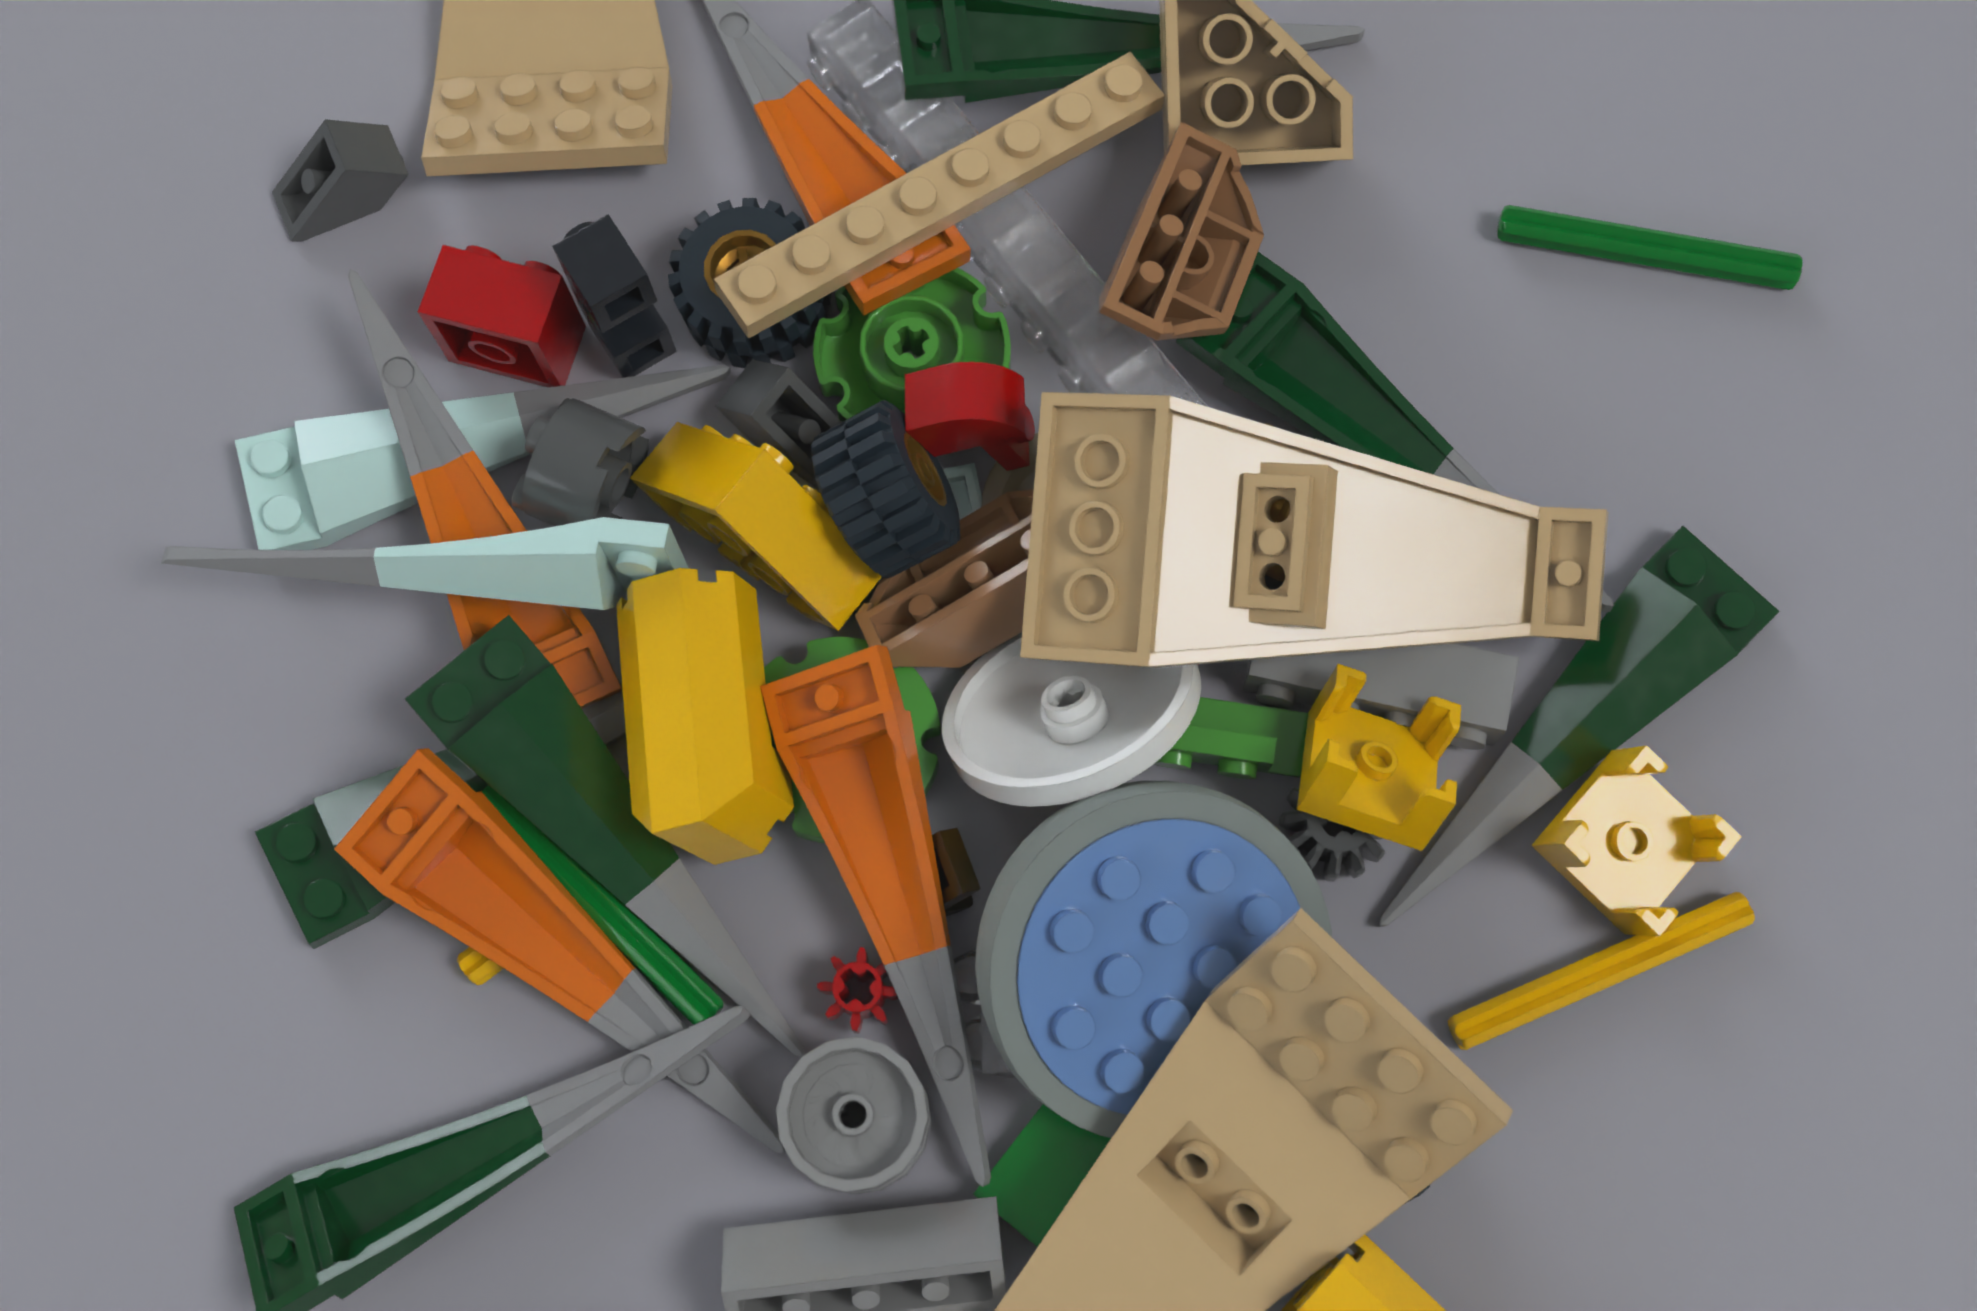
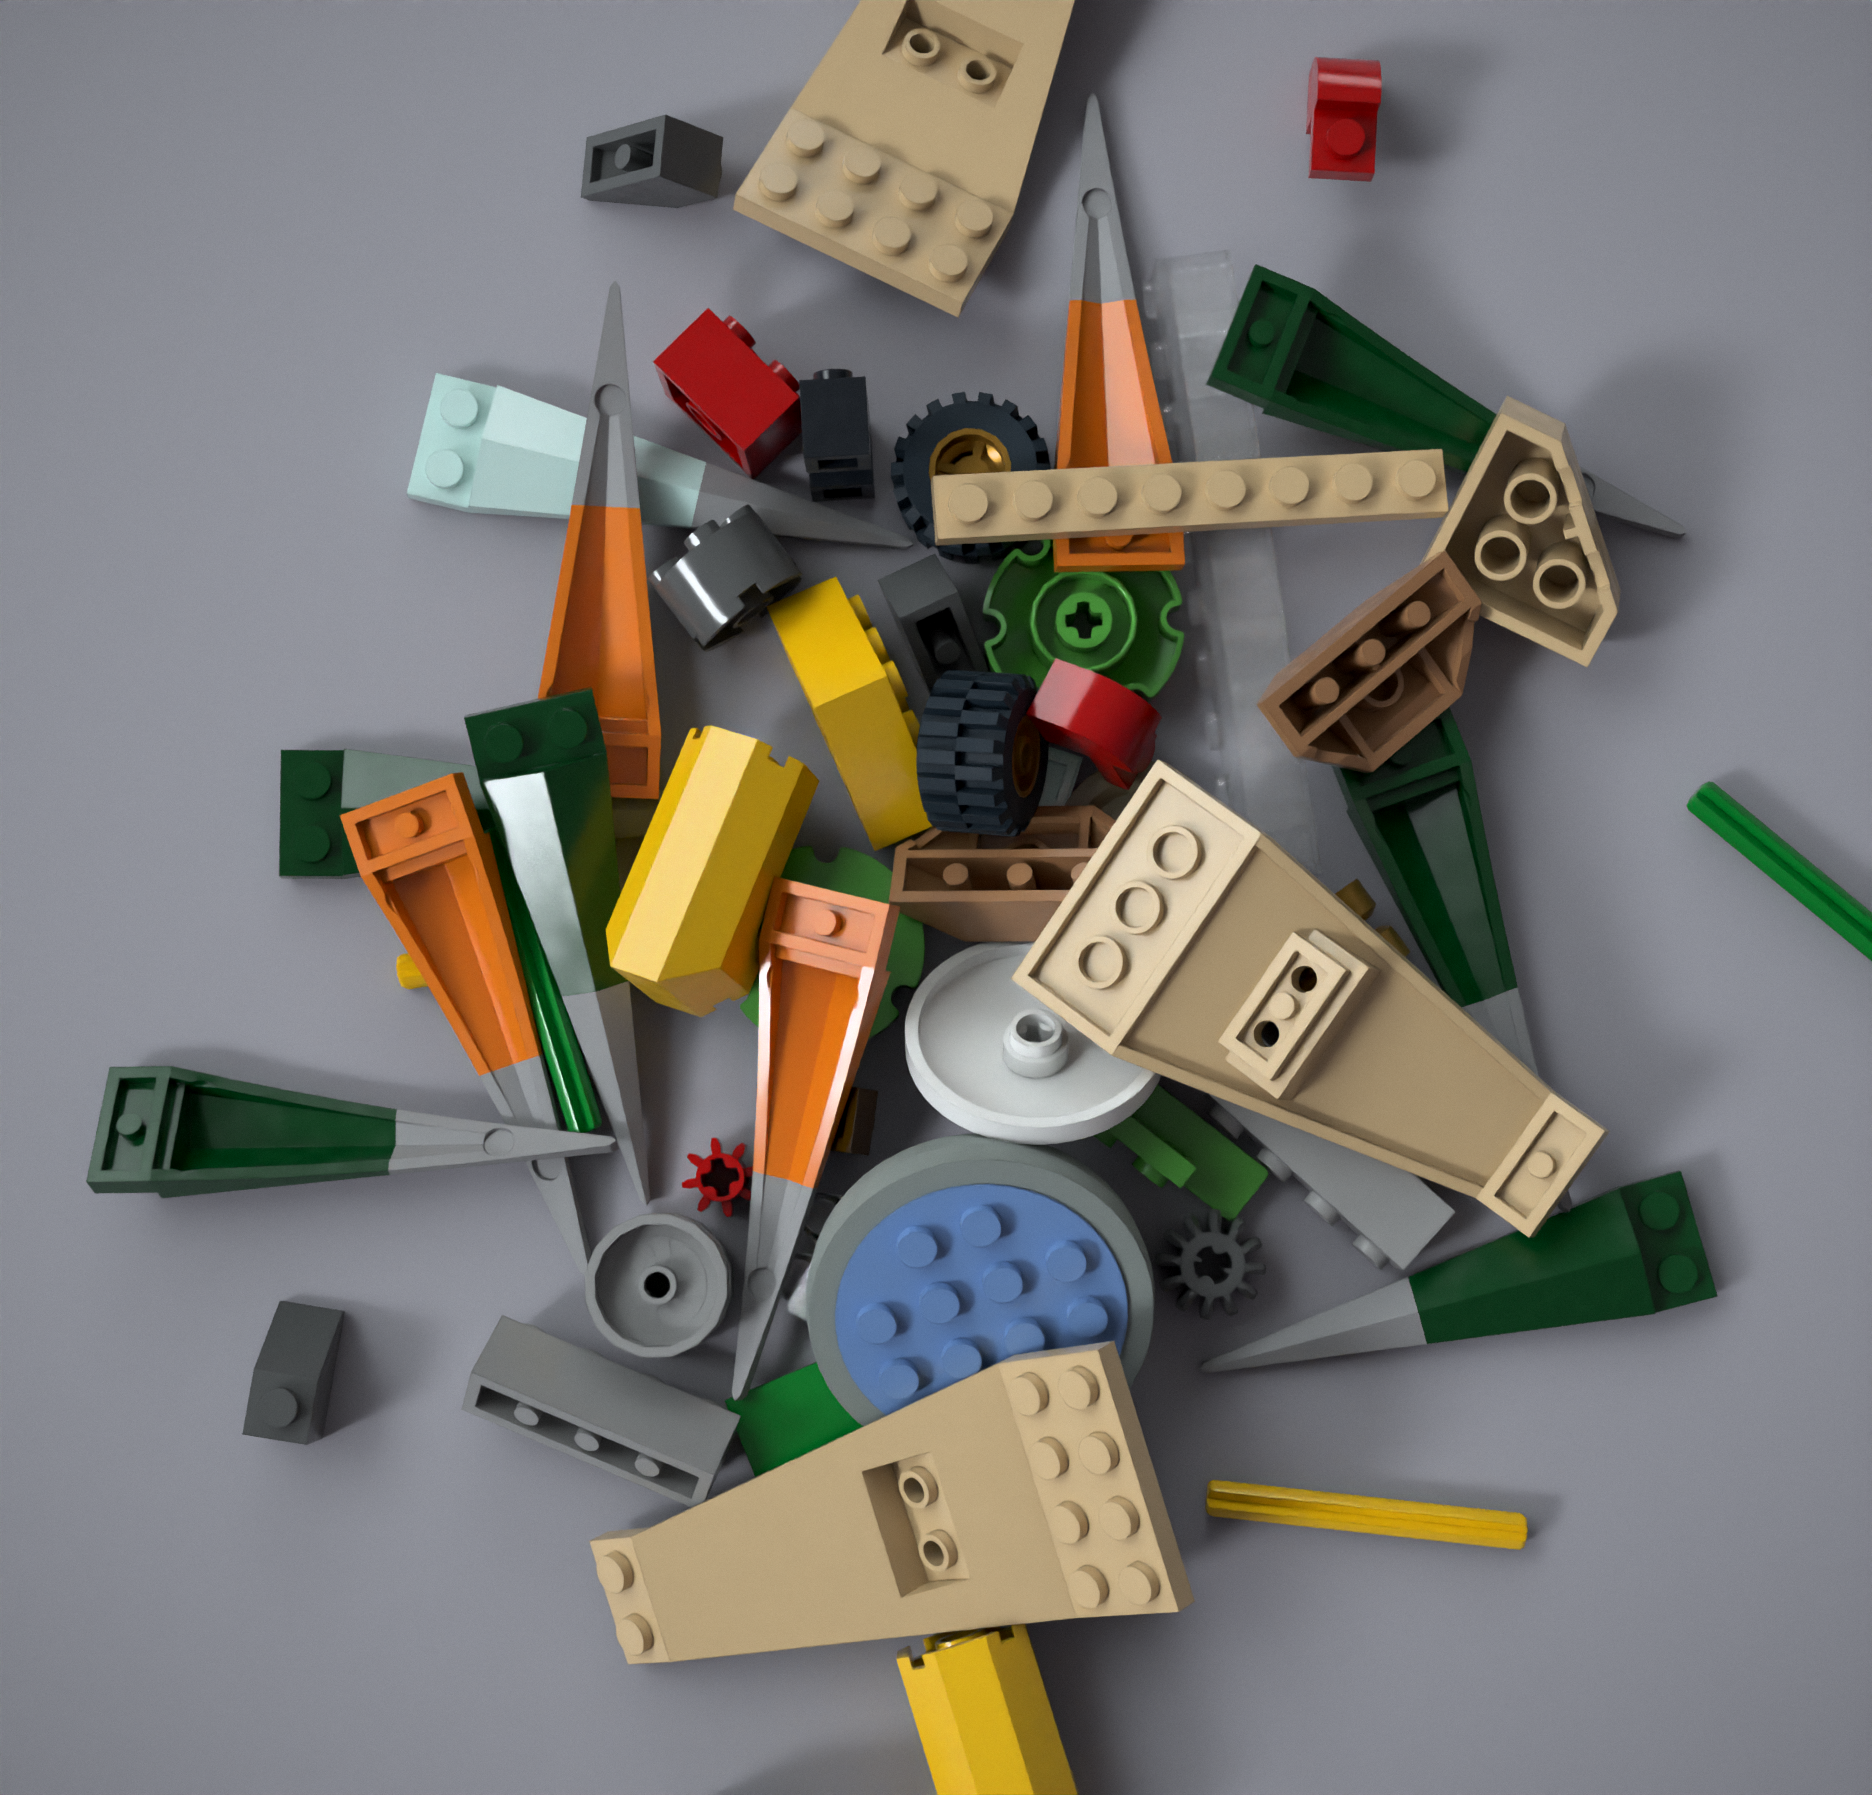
camera: 30 degrees right, 10 degrees up
(558, 565) = (654, 676): light aqua plate -> none
(1374, 770) = (1267, 1238): yellow panel -> none
(1631, 841) = (1456, 1422): panel -> none

